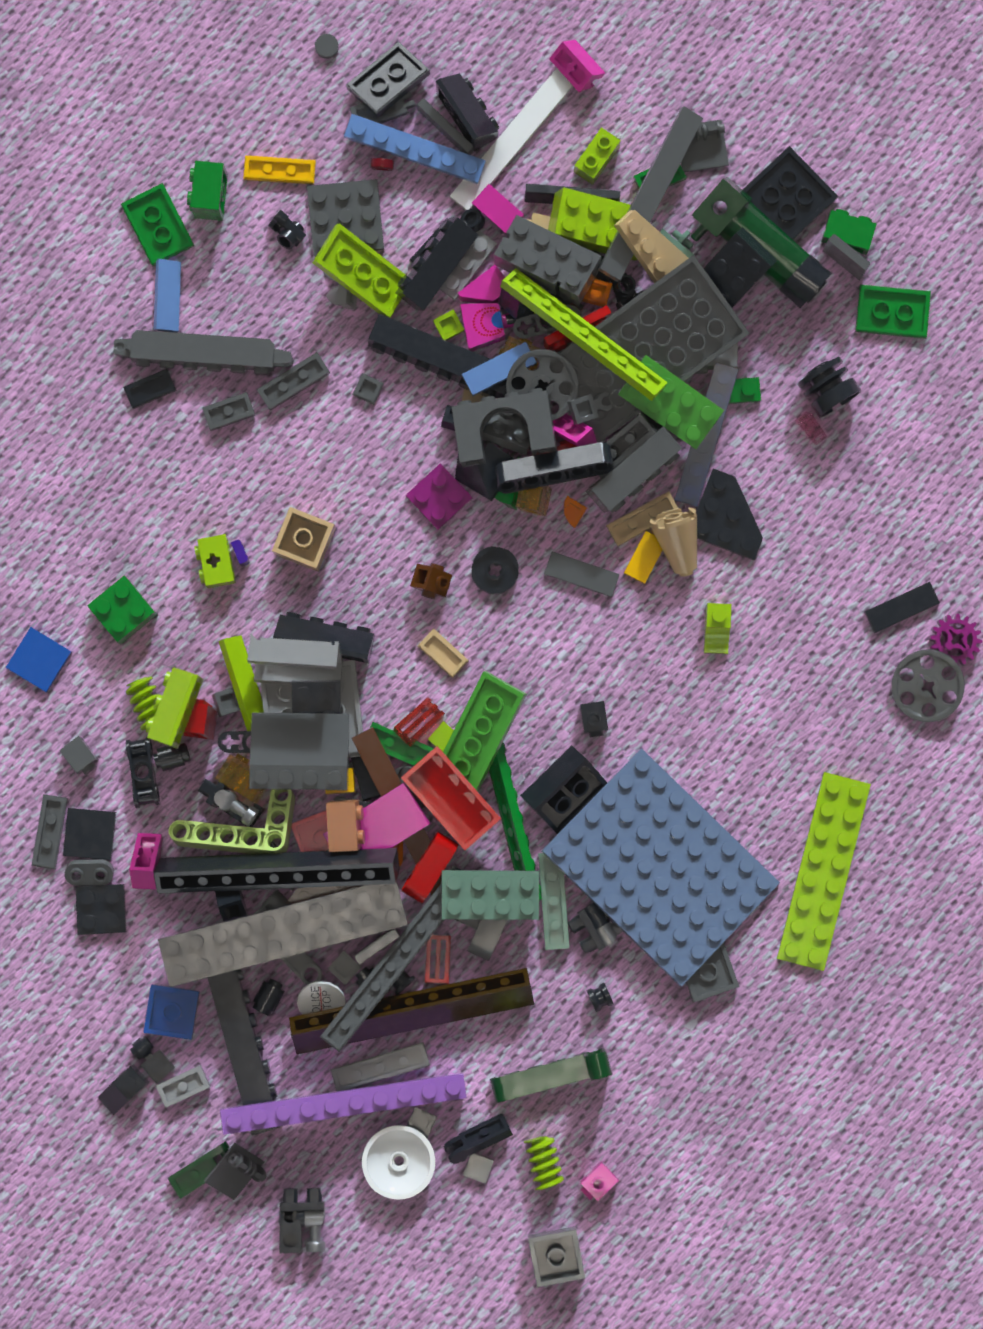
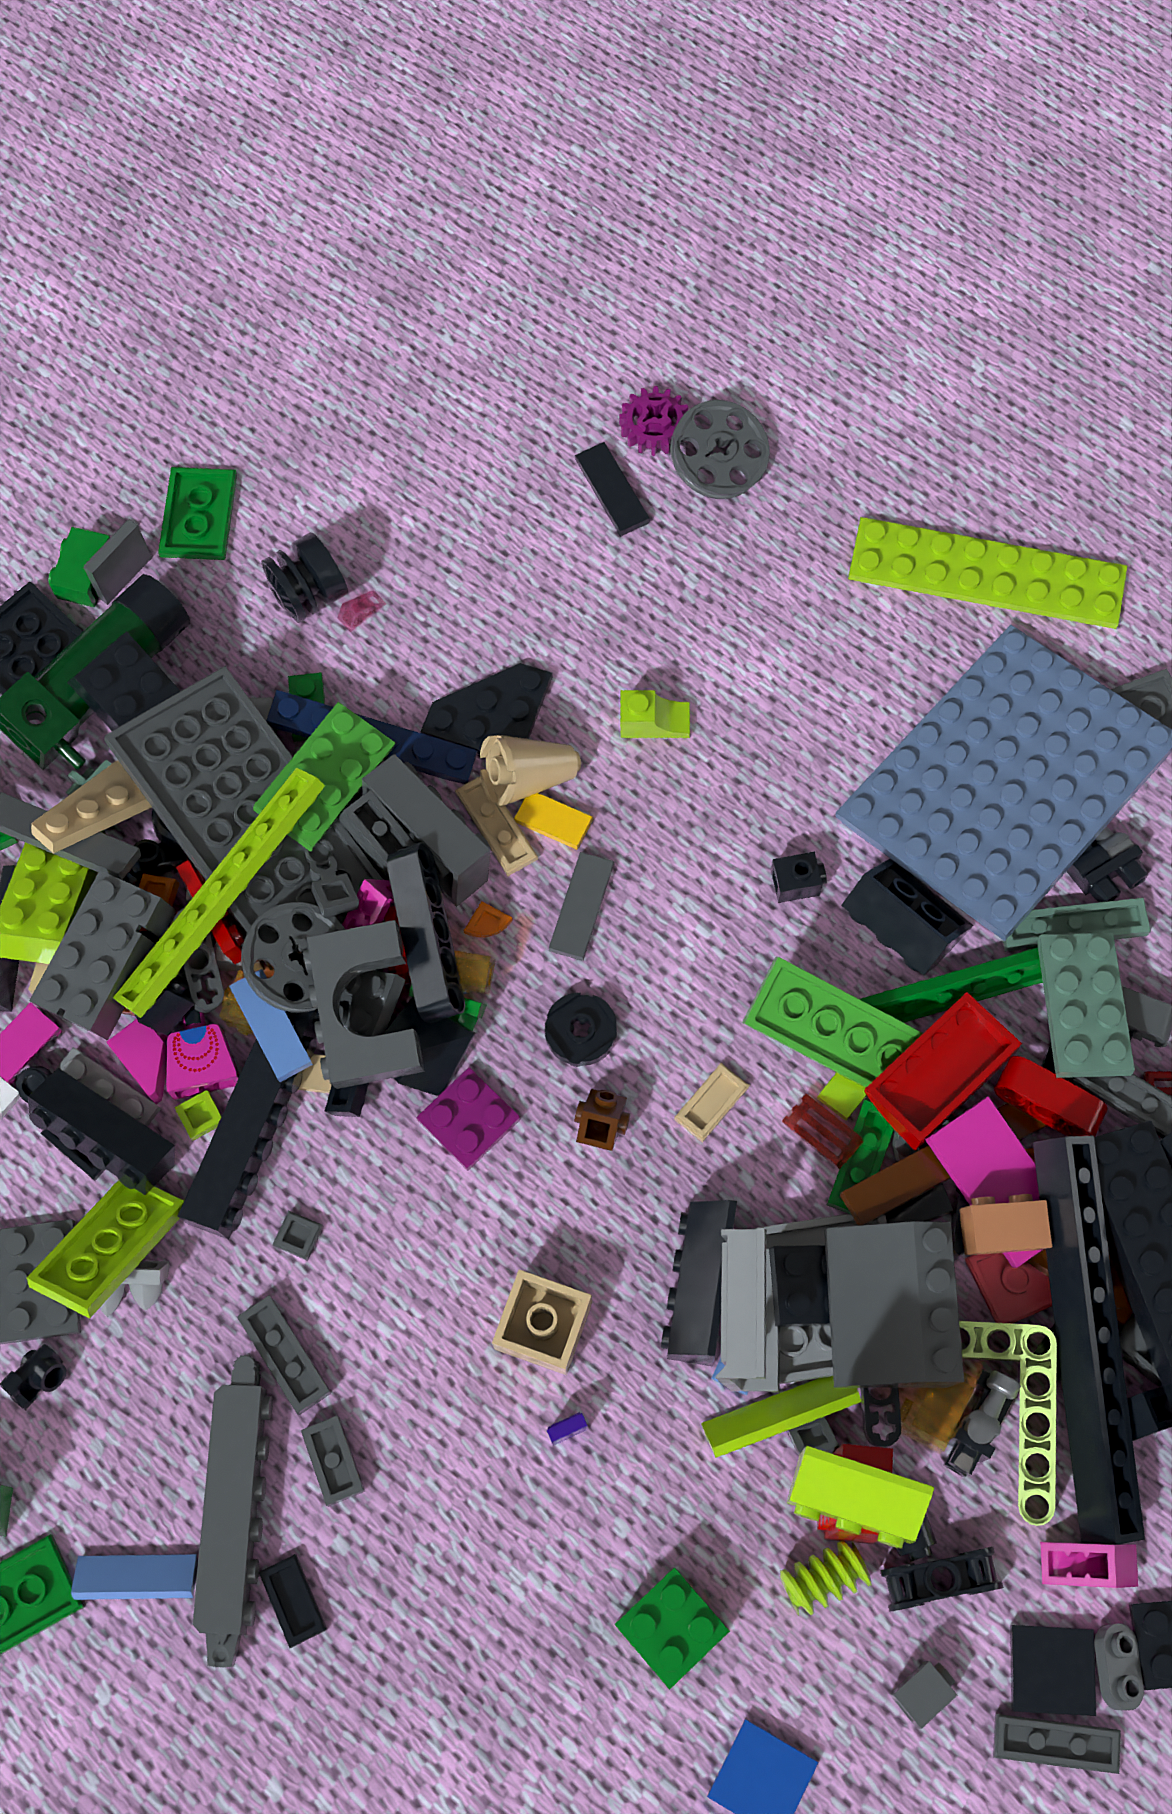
camera: 90 degrees left, 15 degrees down
(224, 572) = (560, 1462): lime brick -> none

